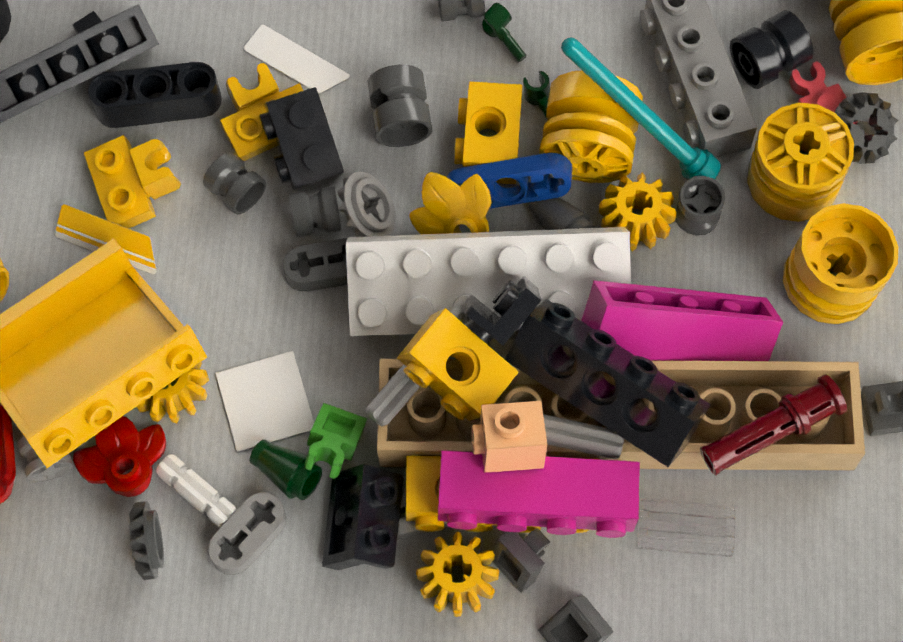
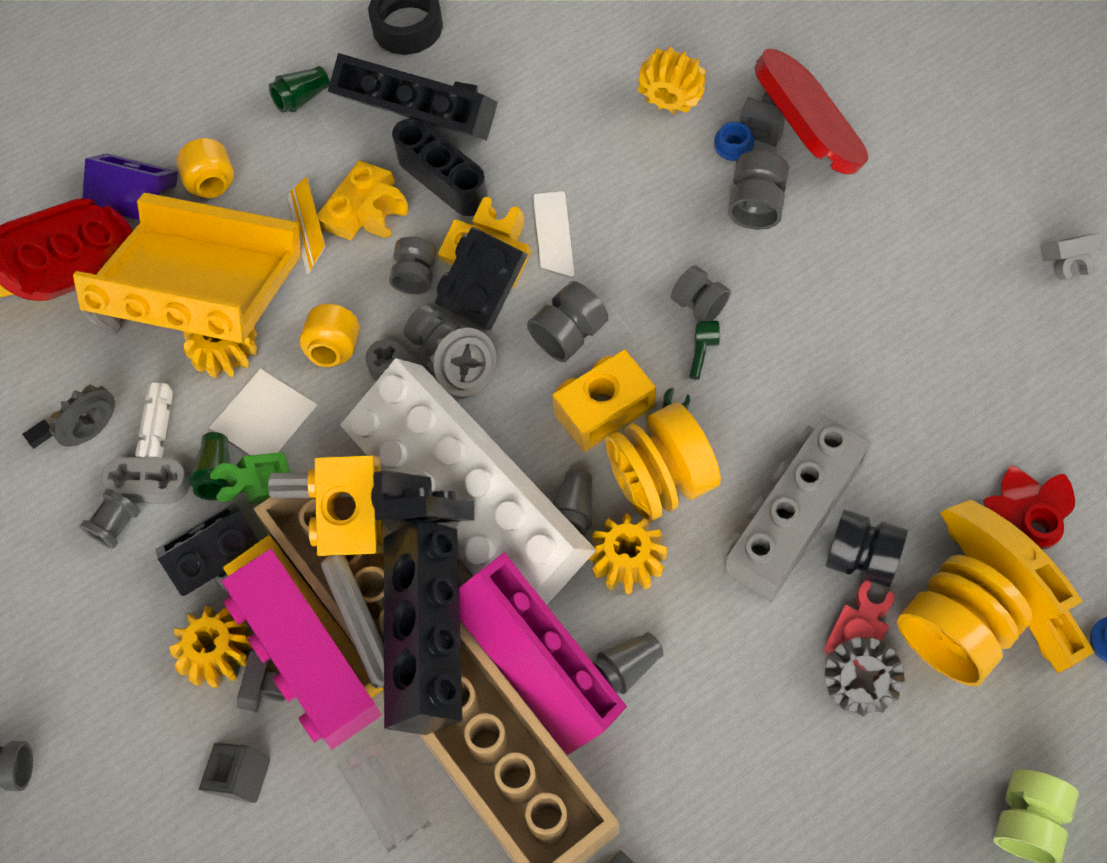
camera: 55 degrees right, 5 degrees down
(115, 597) = (38, 434): none -> black piece
(118, 450) = (146, 357): red plate -> none
(244, 292) = (329, 335): none -> yellow head
(264, 583) = (110, 518): none -> dark grey bush
(451, 205) = (510, 420): yellow plate -> none
(510, 436) = (310, 586): light nougat brick -> none
(536, 166) = (566, 441): blue beam -> none
(692, 160) = (709, 569): teal piece -> none
(702, 195) = (675, 587): dark grey wheel -> none
(724, 270) = (628, 661): none -> dark grey cone
(793, 415) = (515, 798): dark red pin -> none
(795, 183) = (764, 665): yellow wheel -> none
(855, 247) = (729, 726): yellow wheel -> none

